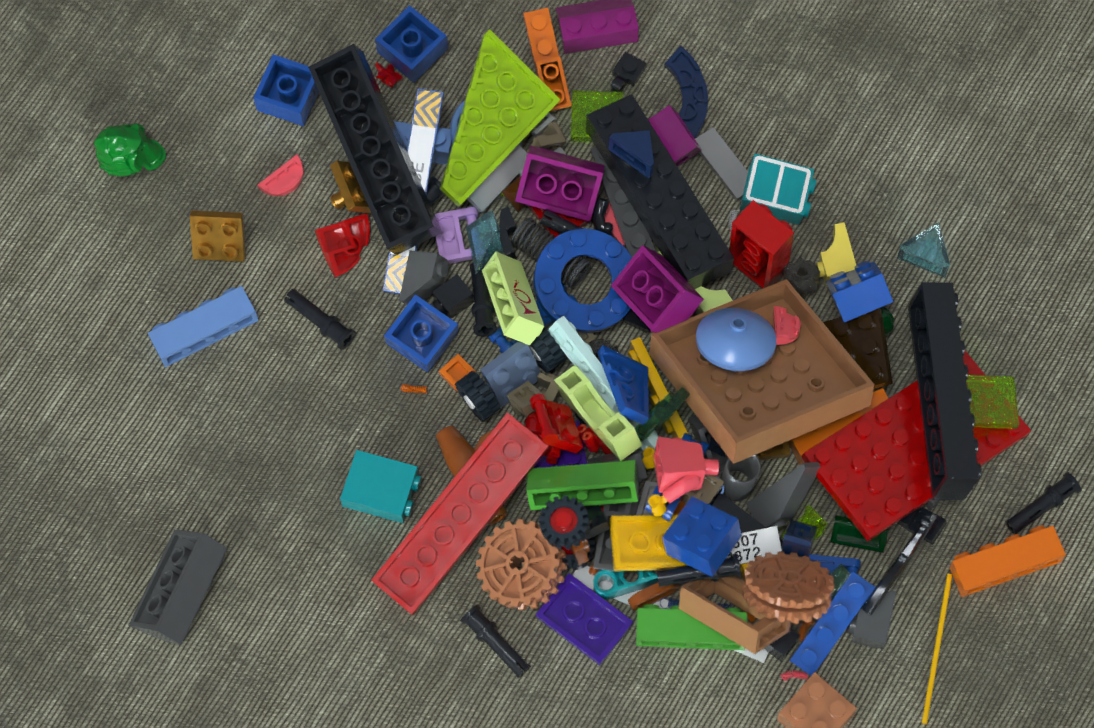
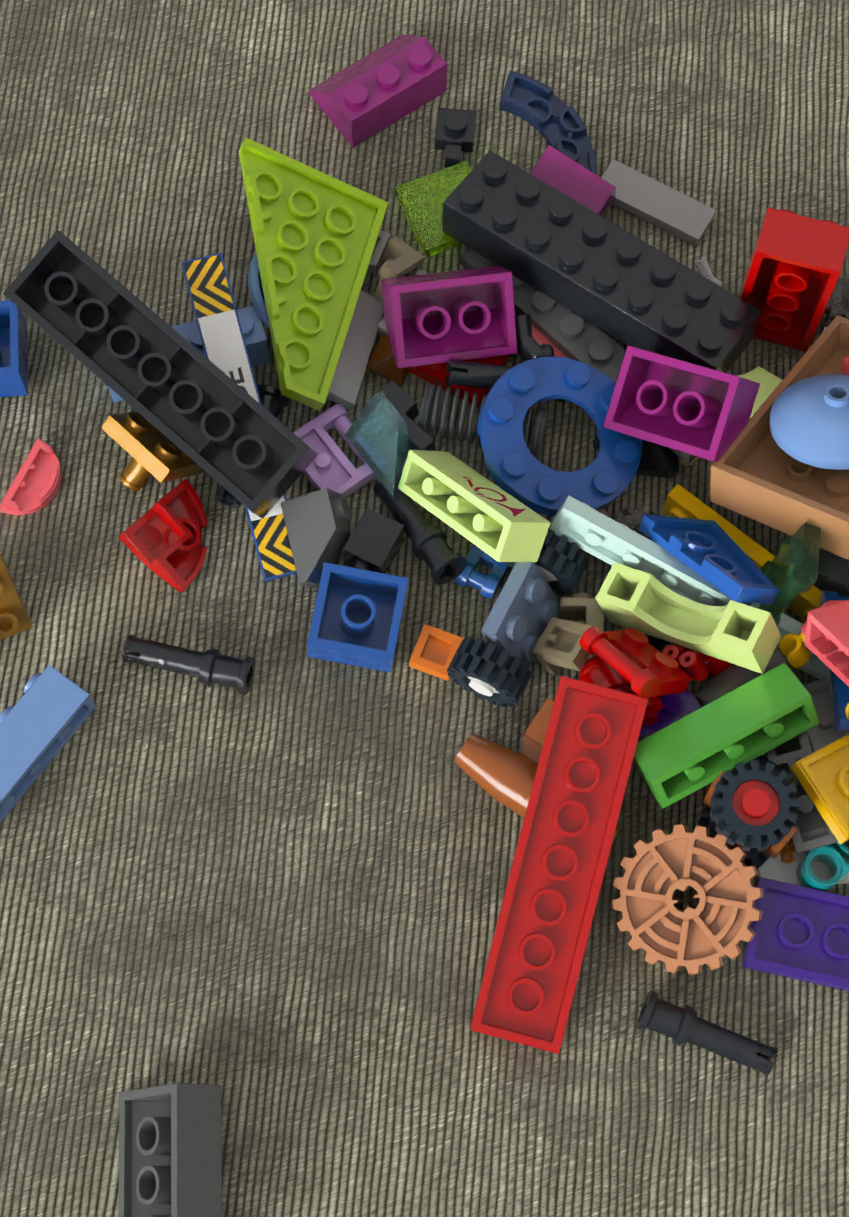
camera: 30 degrees left, 0 degrees up
(380, 486) = (411, 875): teal brick -> none
(388, 74) = (121, 272): red plant -> none
(410, 388) = (373, 708): orange leg -> none
(411, 44) = (133, 213): blue brick -> none
(546, 55) = (328, 149): orange slope -> none
(634, 149) = (546, 217): dark blue slope -> none
(780, 187) = (736, 195): teal brick -> none

